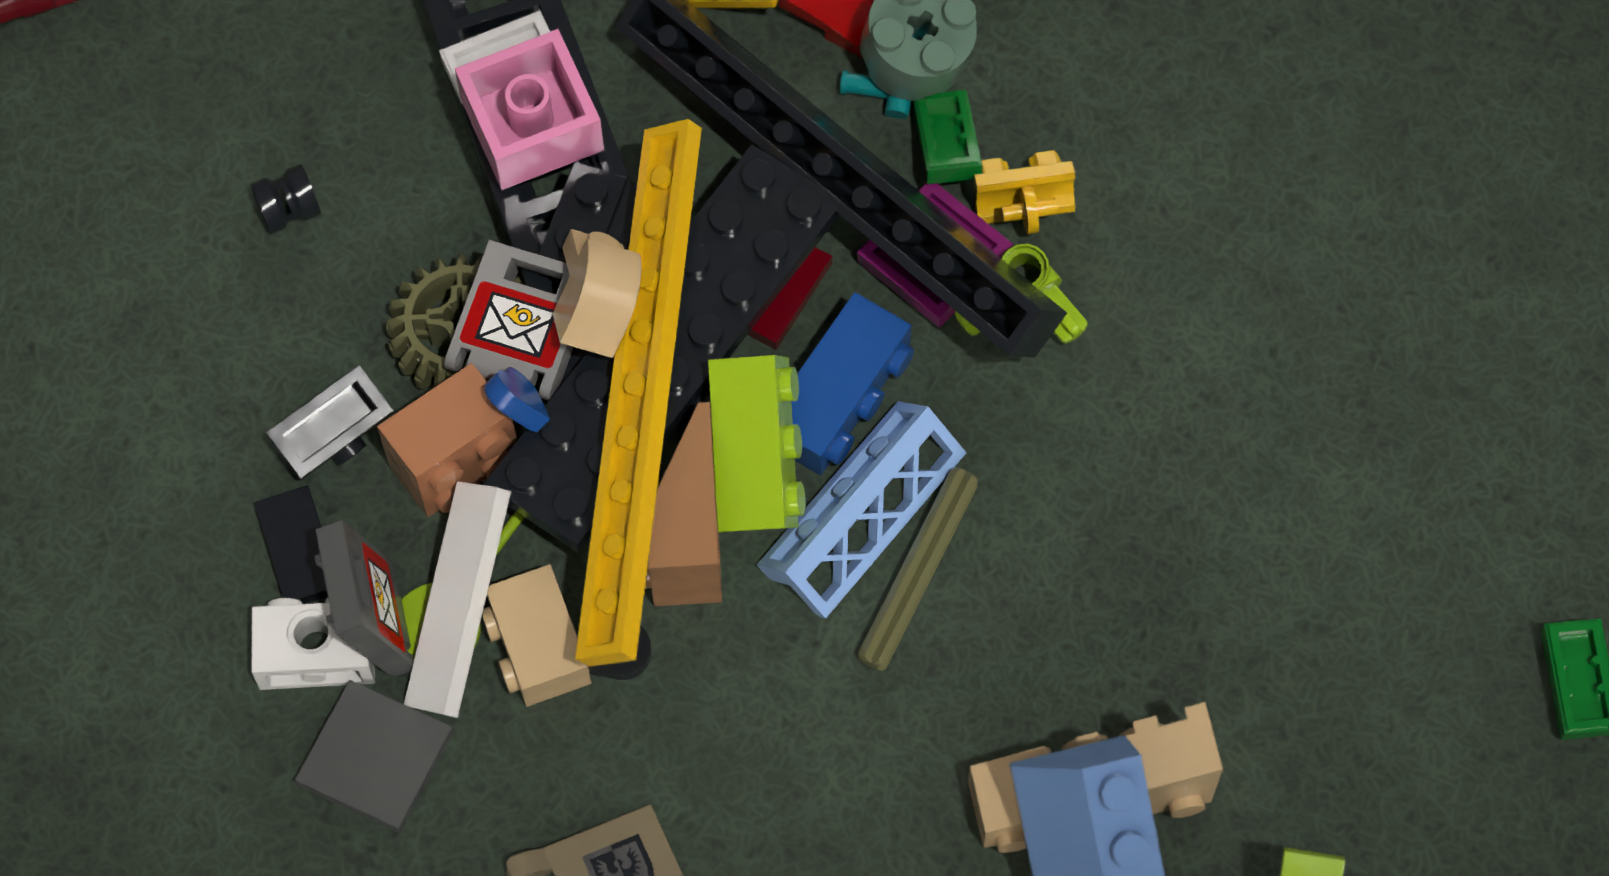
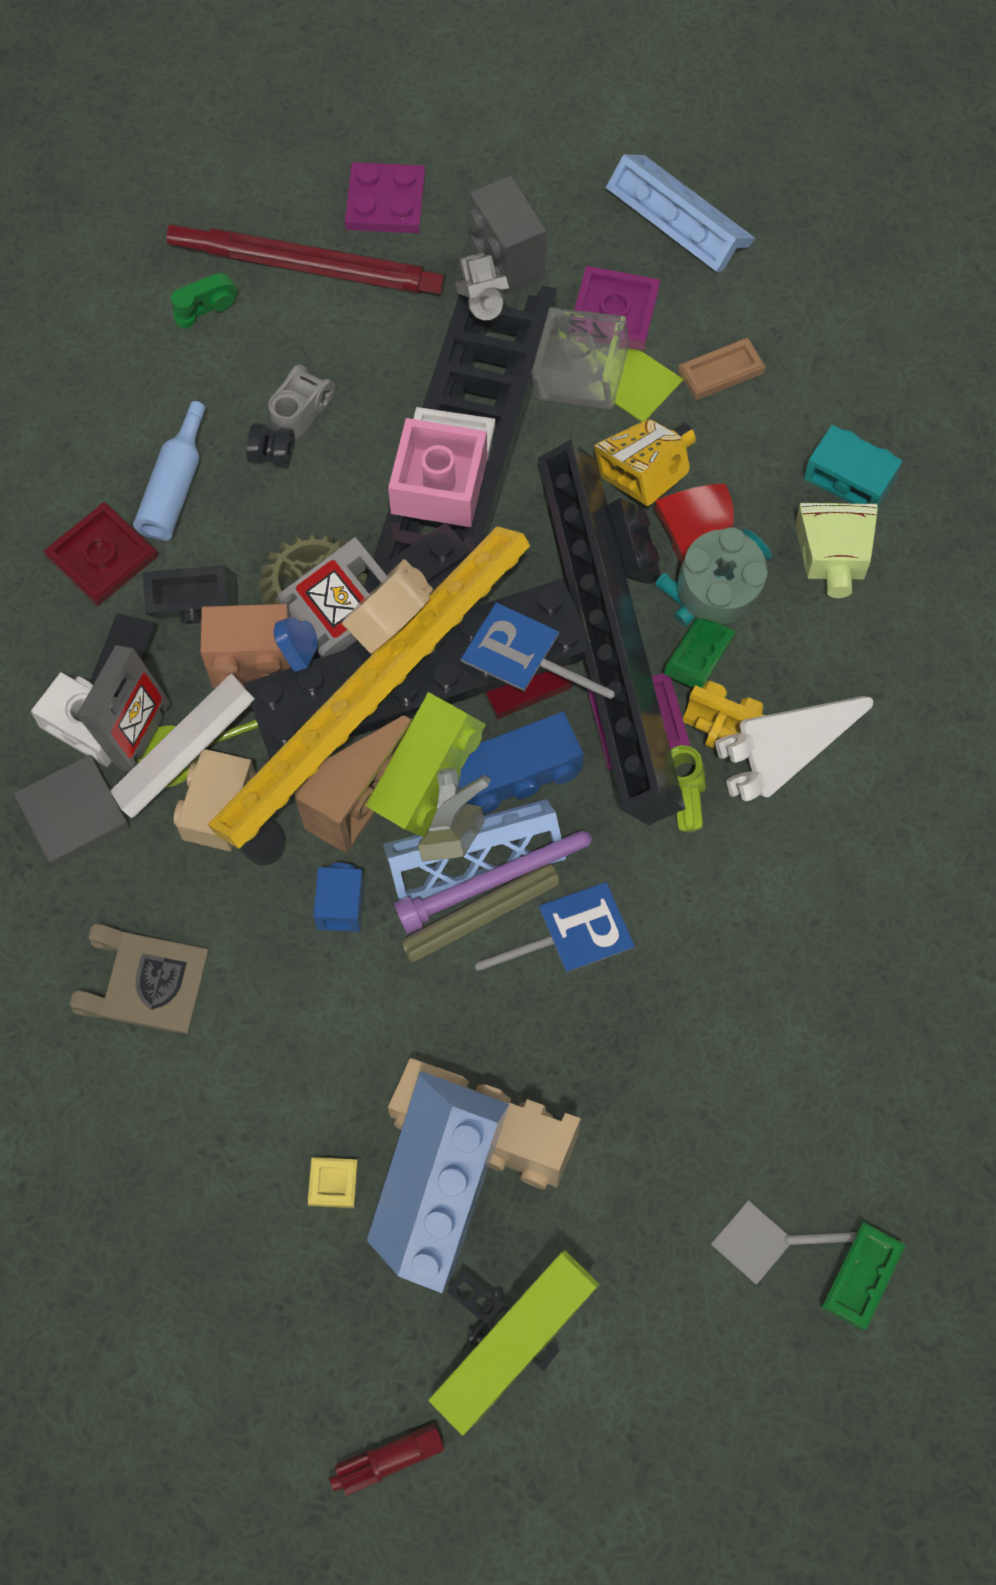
camera: 35 degrees right, 0 degrees up
(74, 61) = (203, 296): none -> green plate
(176, 447) = (100, 553): none -> dark red tile
(197, 310) = (170, 479): none -> light blue piece
(279, 123) = (299, 400): none -> light grey piece
(758, 652) = (339, 898): none -> blue brick
(763, 253) = (514, 649): none -> blue piece
(797, 65) = (634, 541): none -> black plate
(831, 485) = (455, 820): none -> piece
(850, 613) = (416, 911): none -> medium lavender piece
(1037, 515) = (581, 927): none -> blue piece
(1109, 180) = (785, 743): none -> white flag
(1451, 719) = (756, 1242): none -> light grey piece

